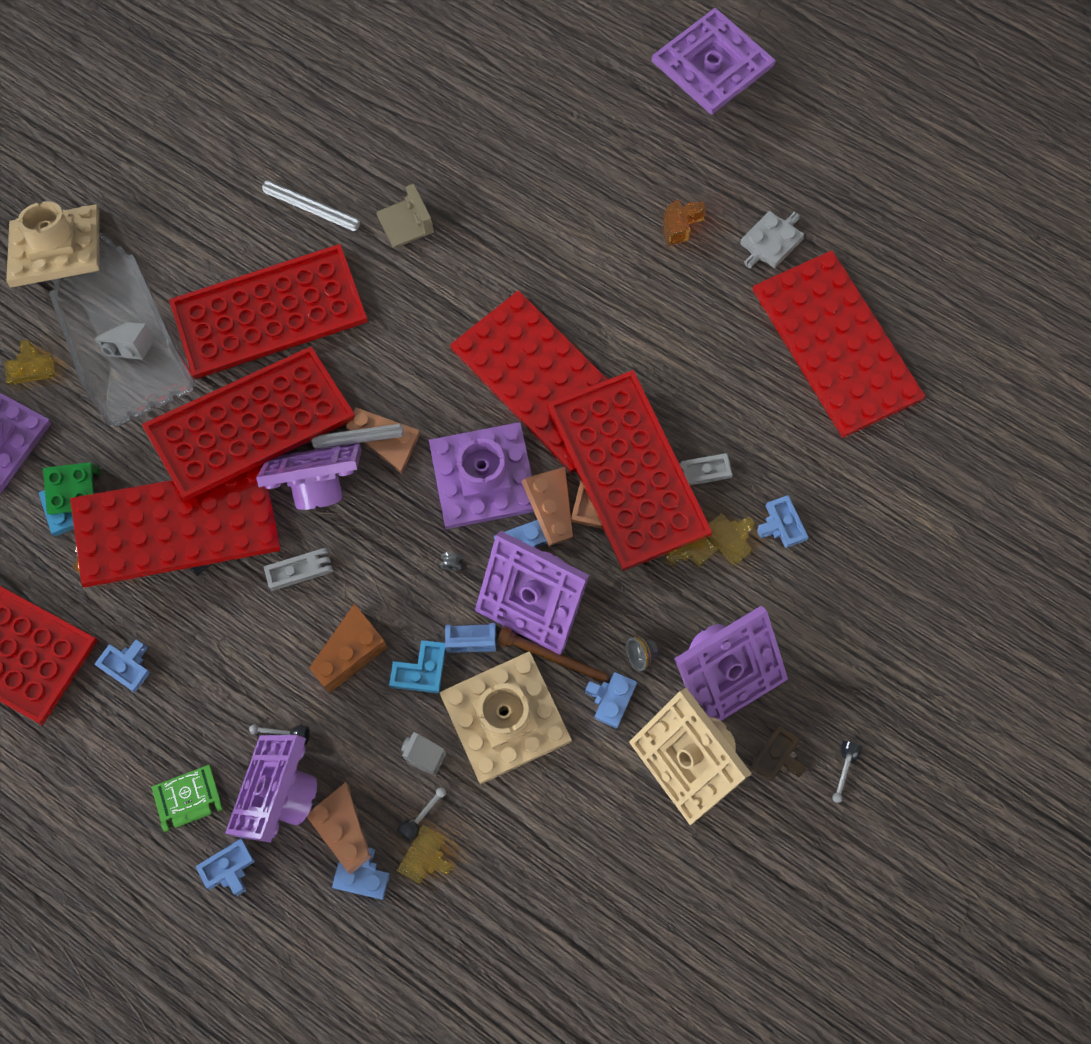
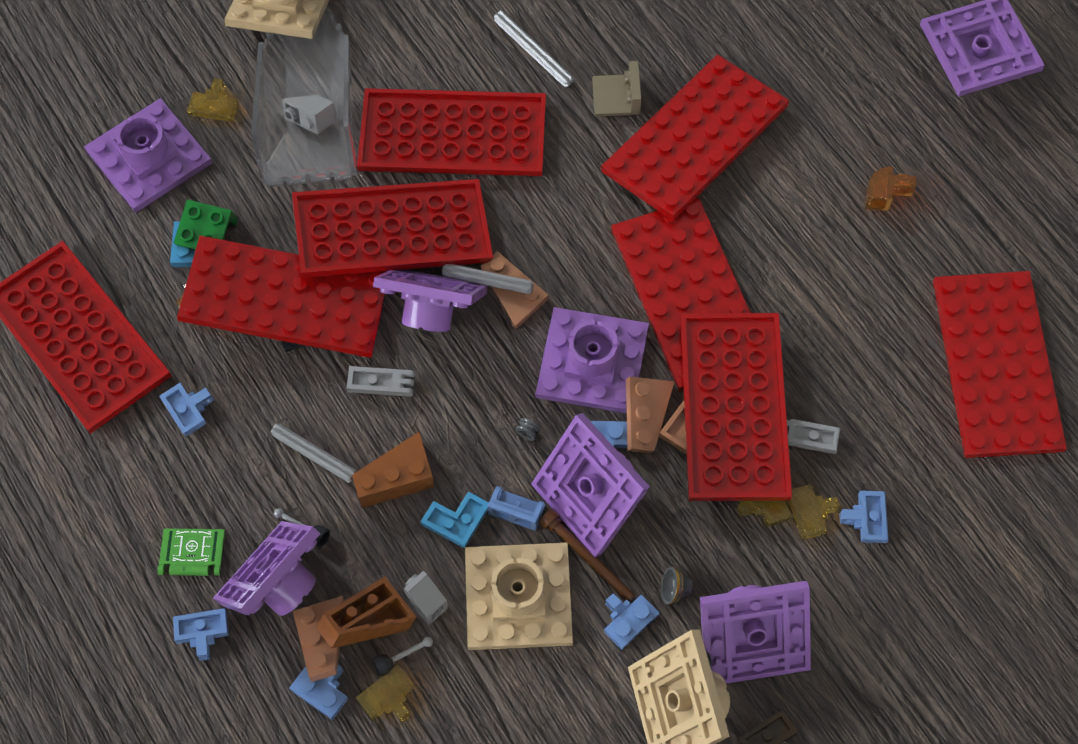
camera: 20 degrees right, 5 degrees down
(263, 660) = (313, 452): none -> light grey axle
(377, 793) = (366, 616): none -> dark orange wedge
(491, 235) = (694, 137): none -> red plate
(772, 239) = (972, 239): light grey plate -> none

